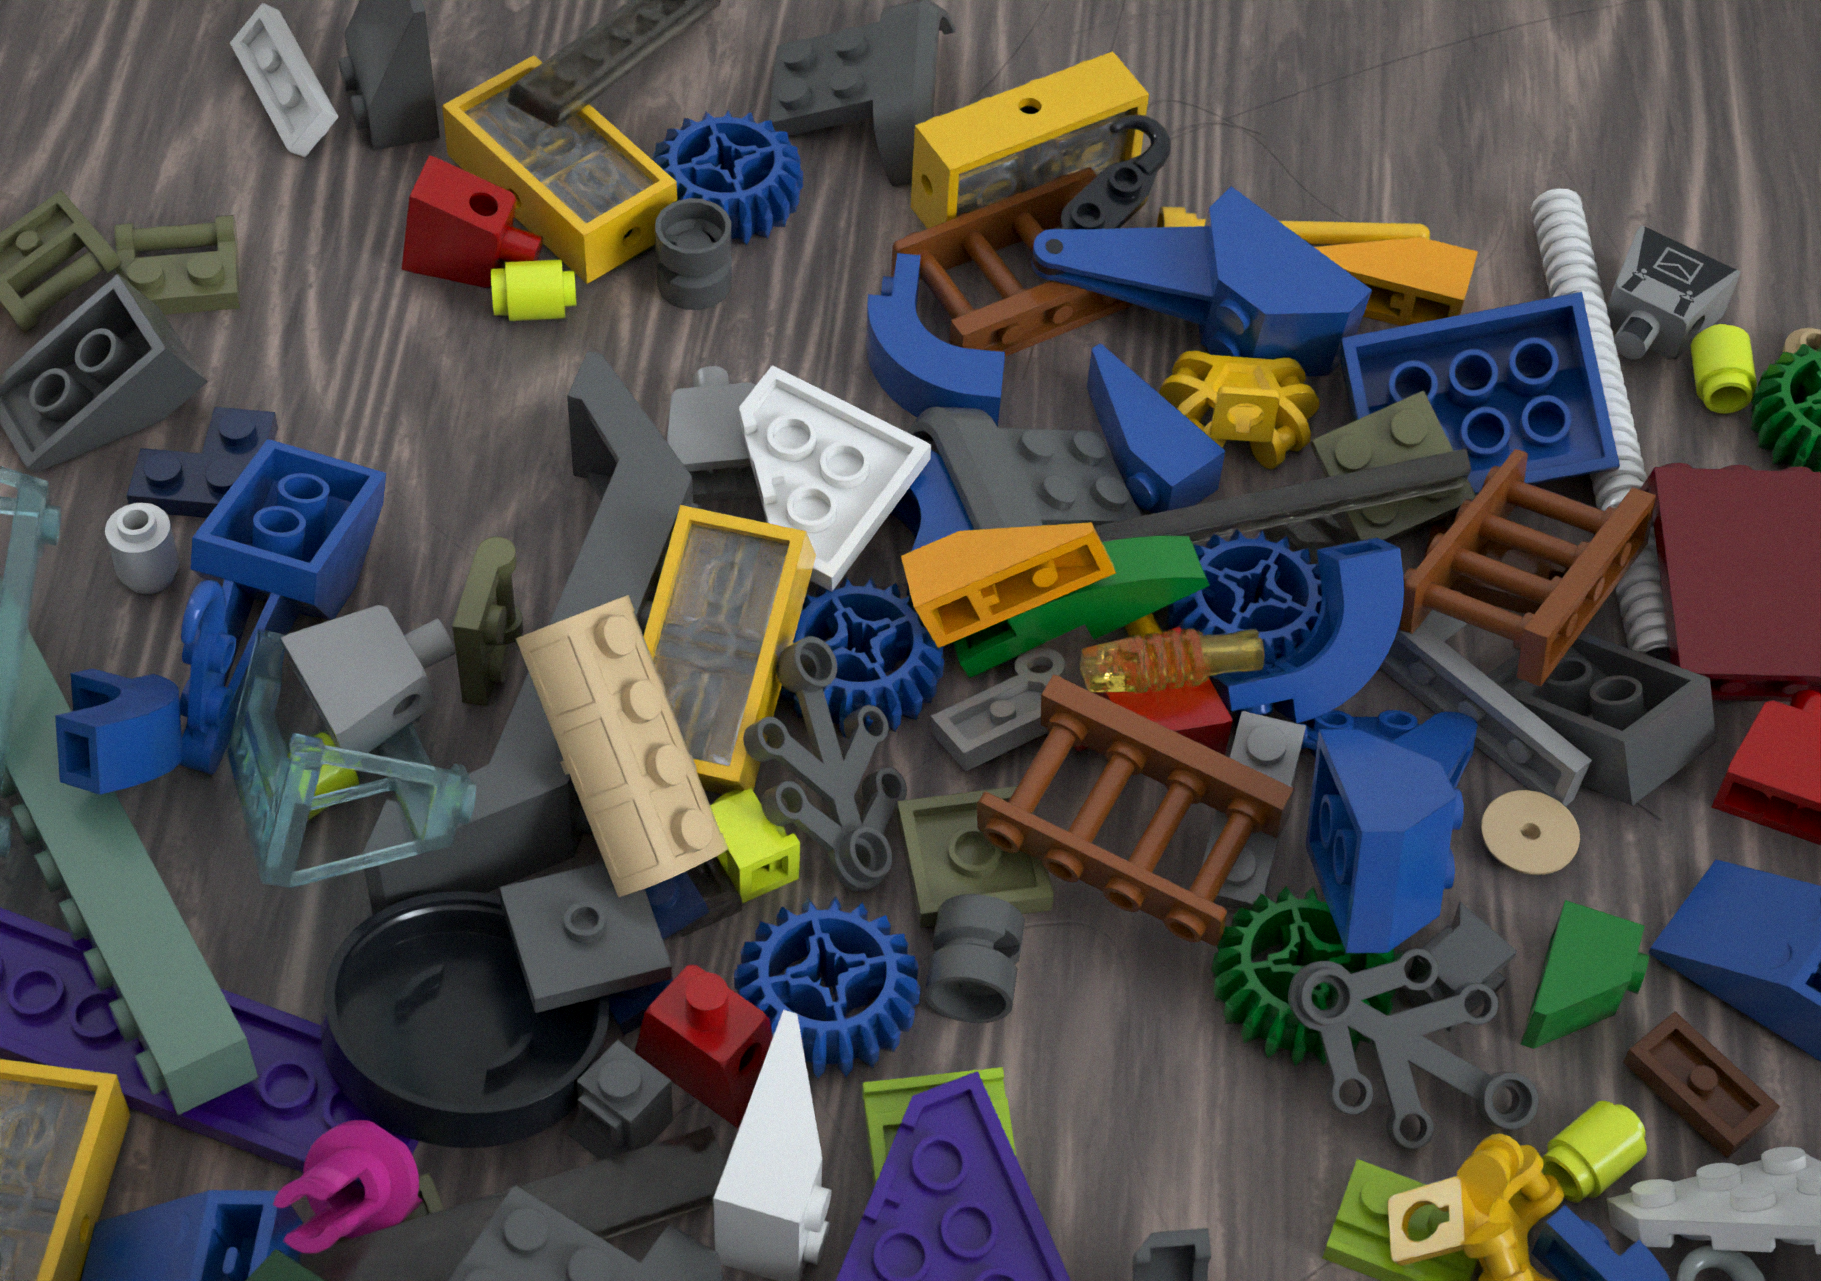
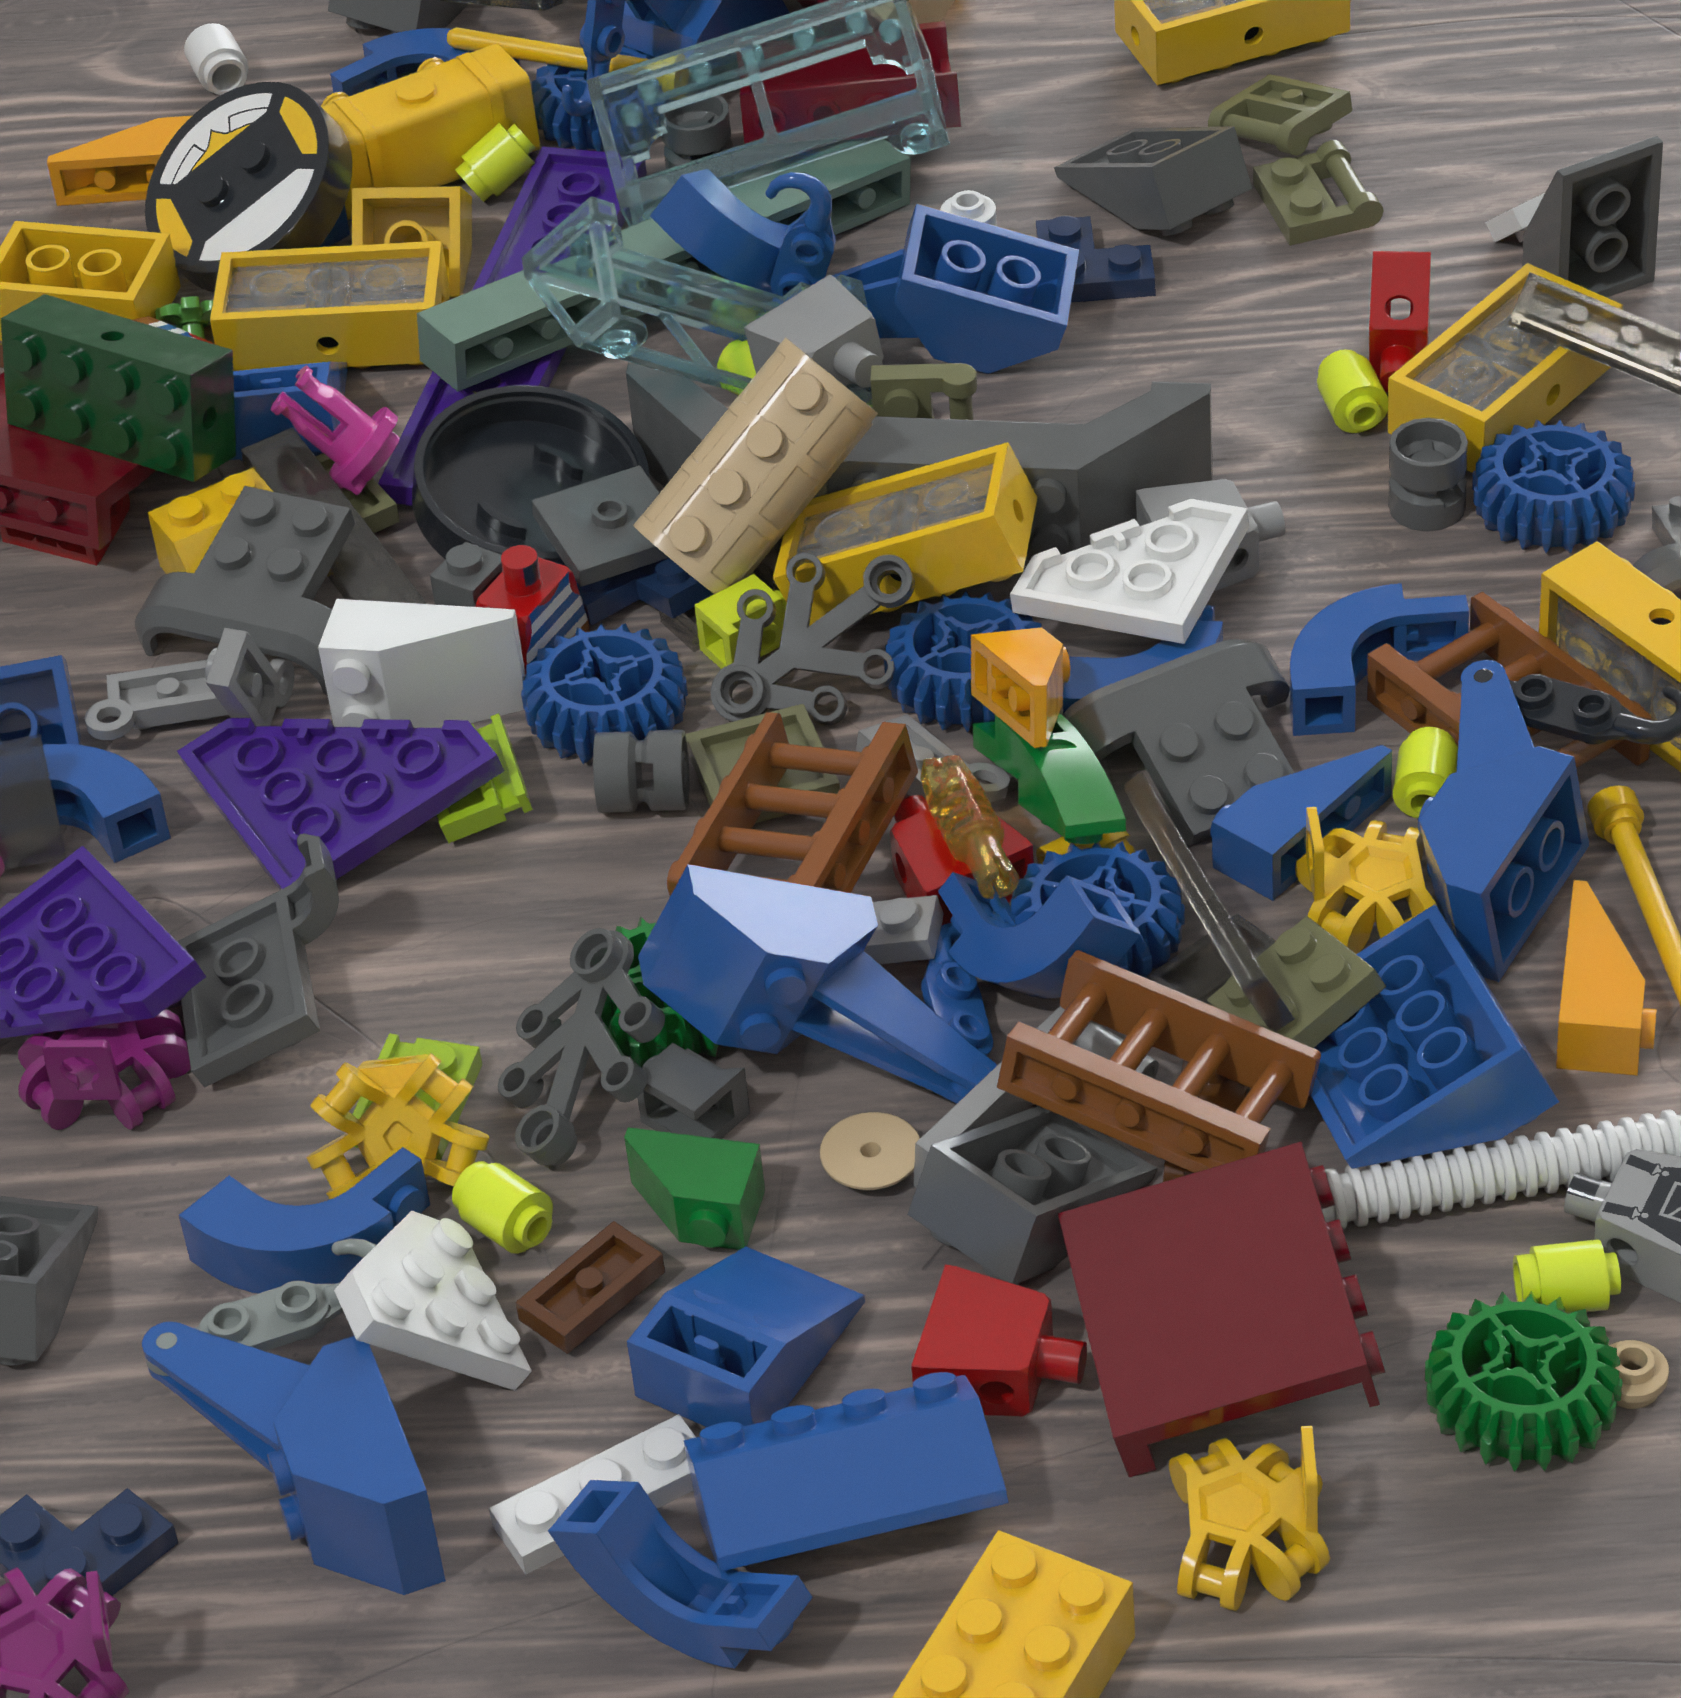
camera: 90 degrees right, 10 degrees down
(1091, 326) = (1423, 767): none -> neon yellow brick

